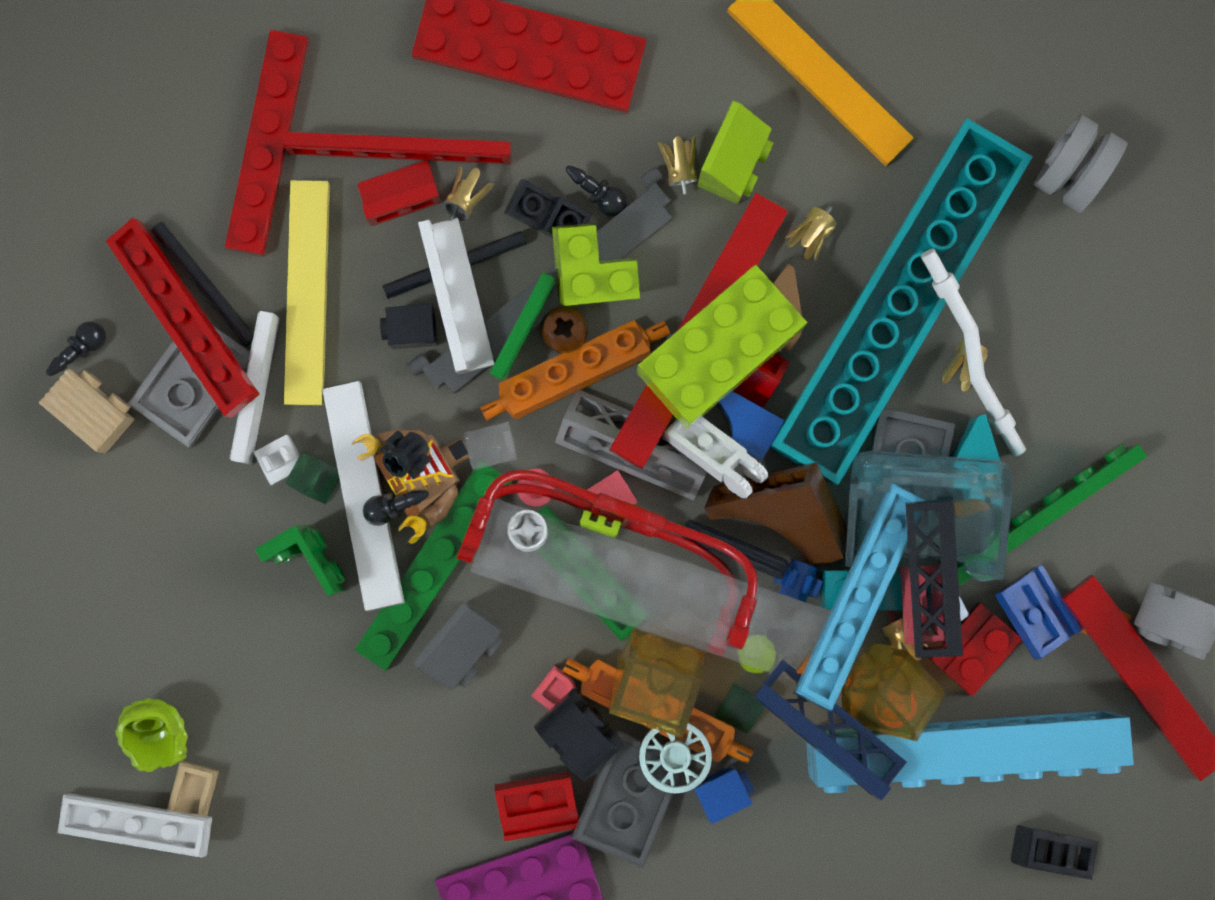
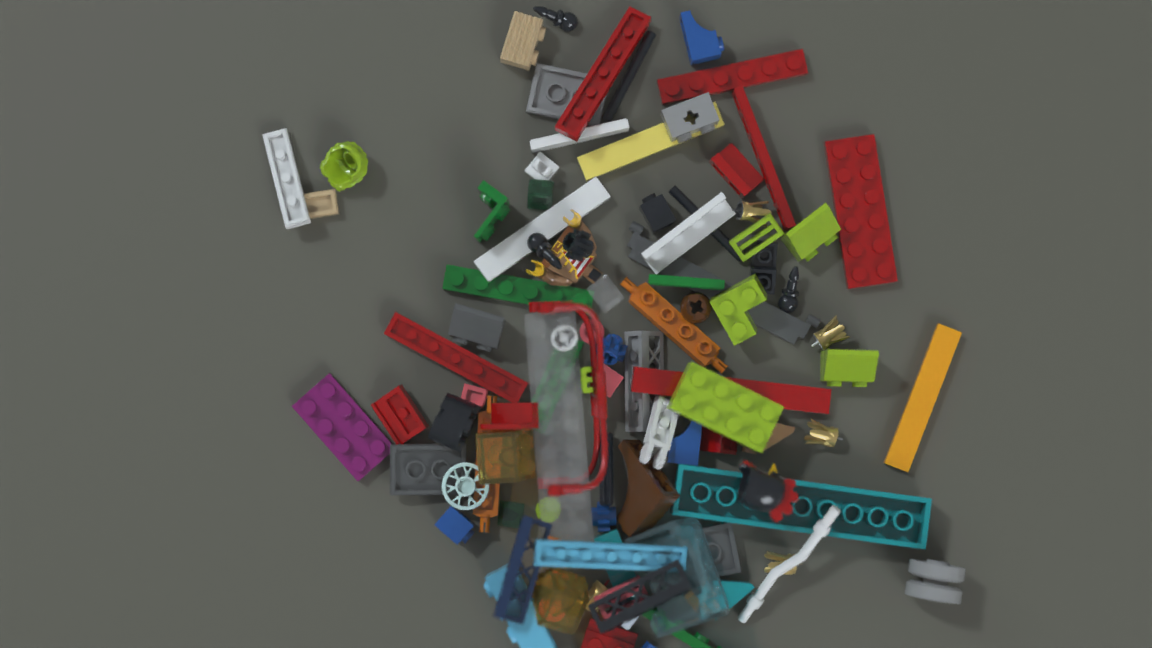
camera: 60 degrees right, 0 degrees up
(200, 165) = (700, 43): none -> blue arch
(287, 203) = (698, 107): none -> light grey brick
(490, 693) = (455, 358): none -> red plate
(508, 235) = (774, 224): none -> lime tile
(530, 125) = (811, 233): none -> lime slope
(573, 468) = (613, 349): none -> blue gear
(607, 649) = (513, 416): none -> red panel
(863, 341) = (766, 491): none -> black piece

